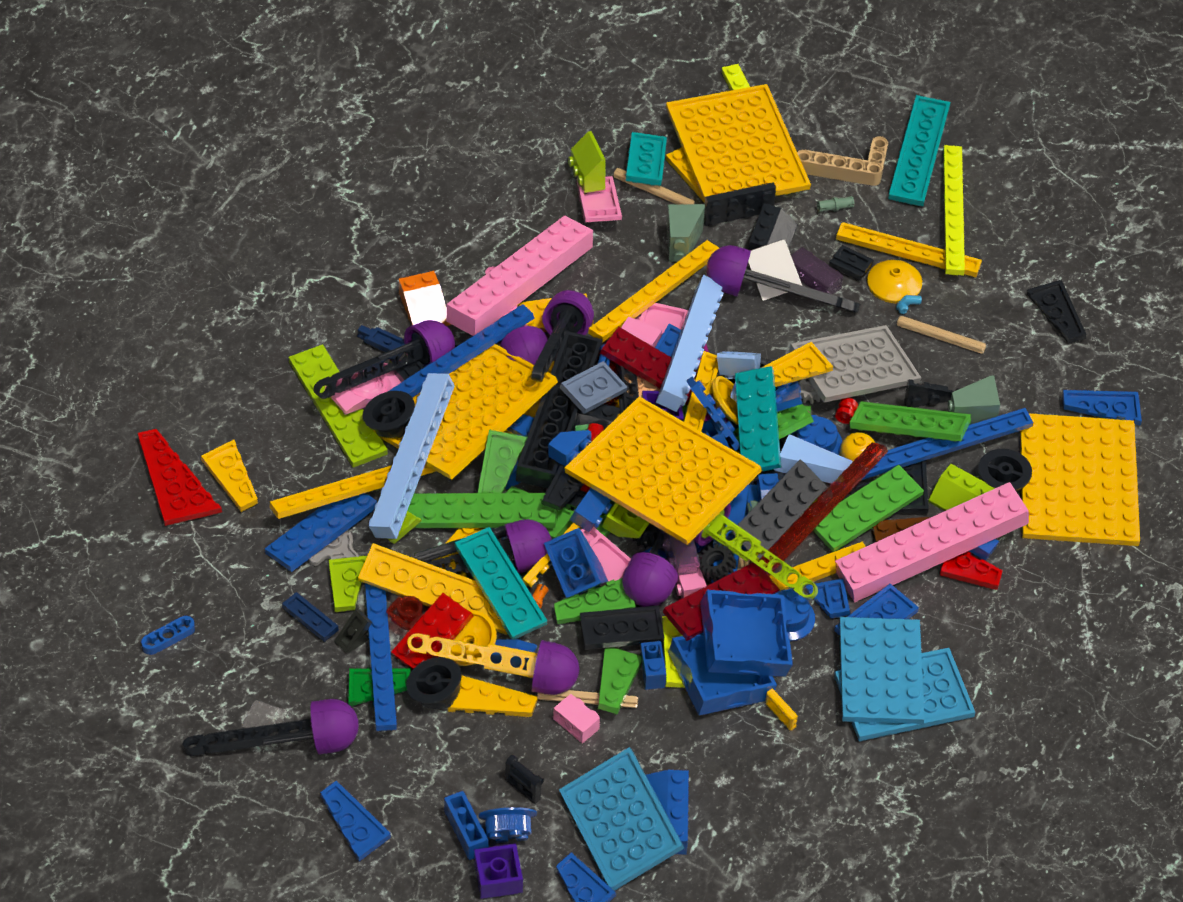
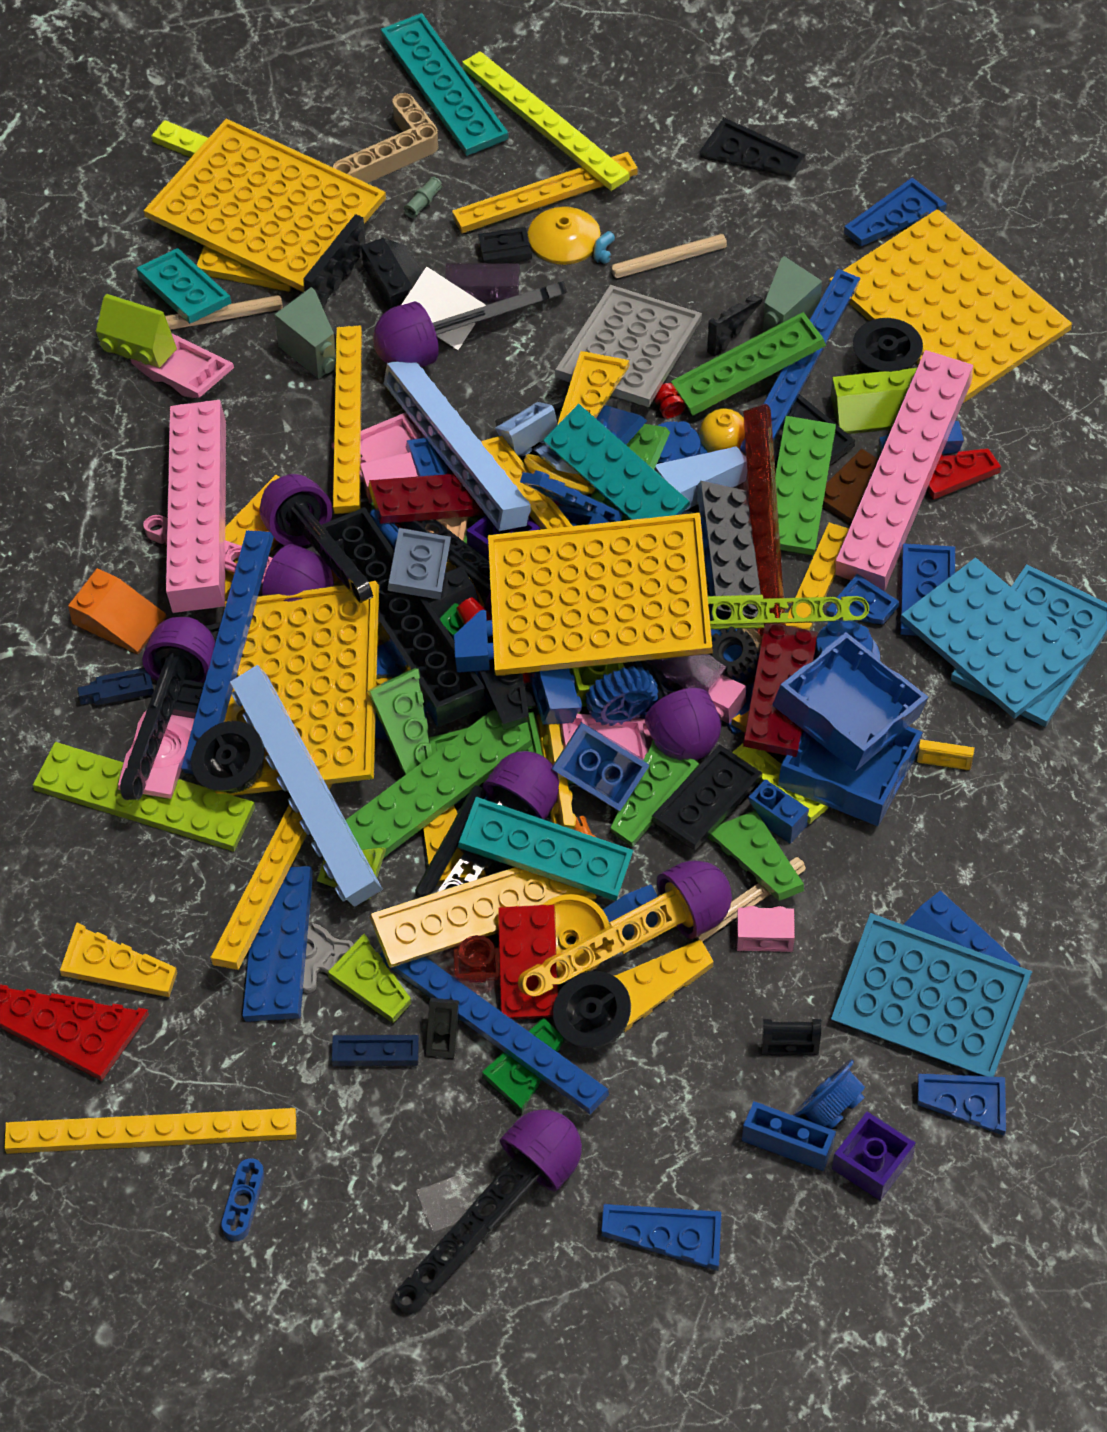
camera: 40 degrees left, 5 degrees up
(162, 568) = (150, 1130): none -> yellow plate
(626, 536) = (622, 696): none -> blue gear

